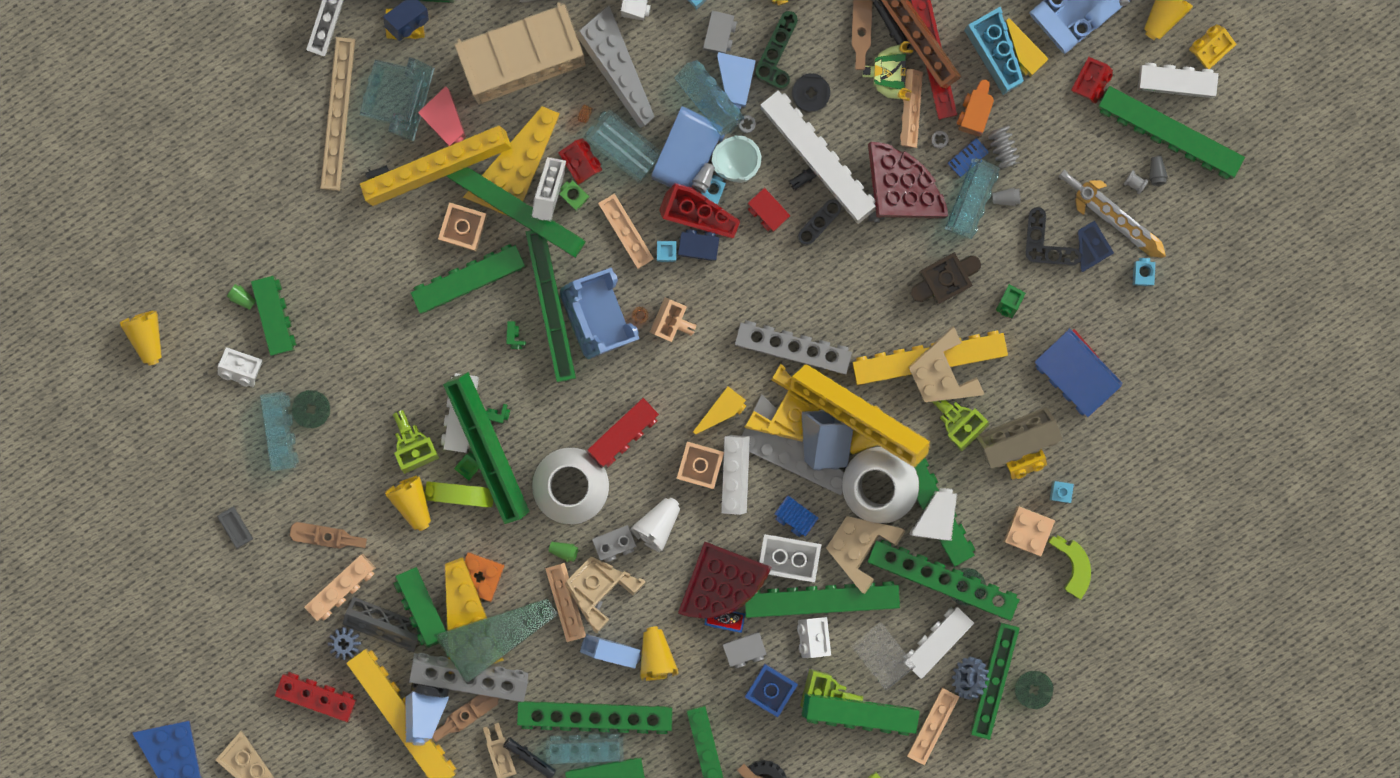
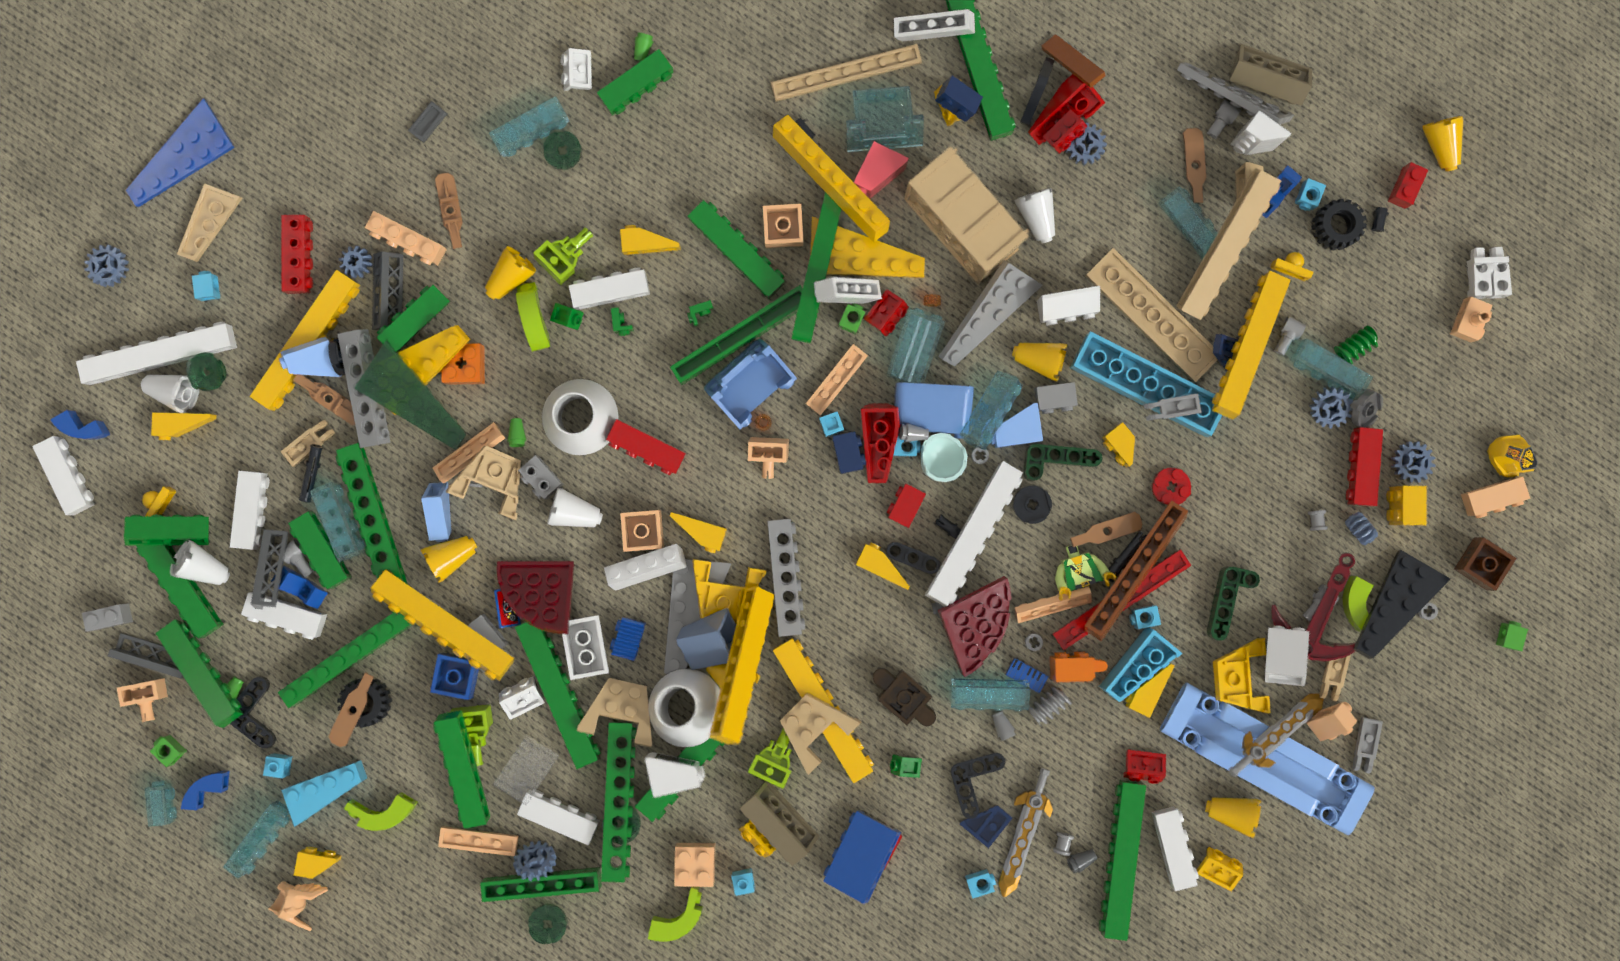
camera: 80 degrees right, 0 degrees up
(426, 365) = (641, 241): none -> yellow slope
(486, 448) = (583, 323): green brick -> none
(677, 32) = (1041, 357): none -> yellow cone
(719, 682) = (441, 625): none -> yellow brick
(813, 256) = (878, 563): none -> yellow slope
(960, 21) = (1153, 617): none -> medium azure brick

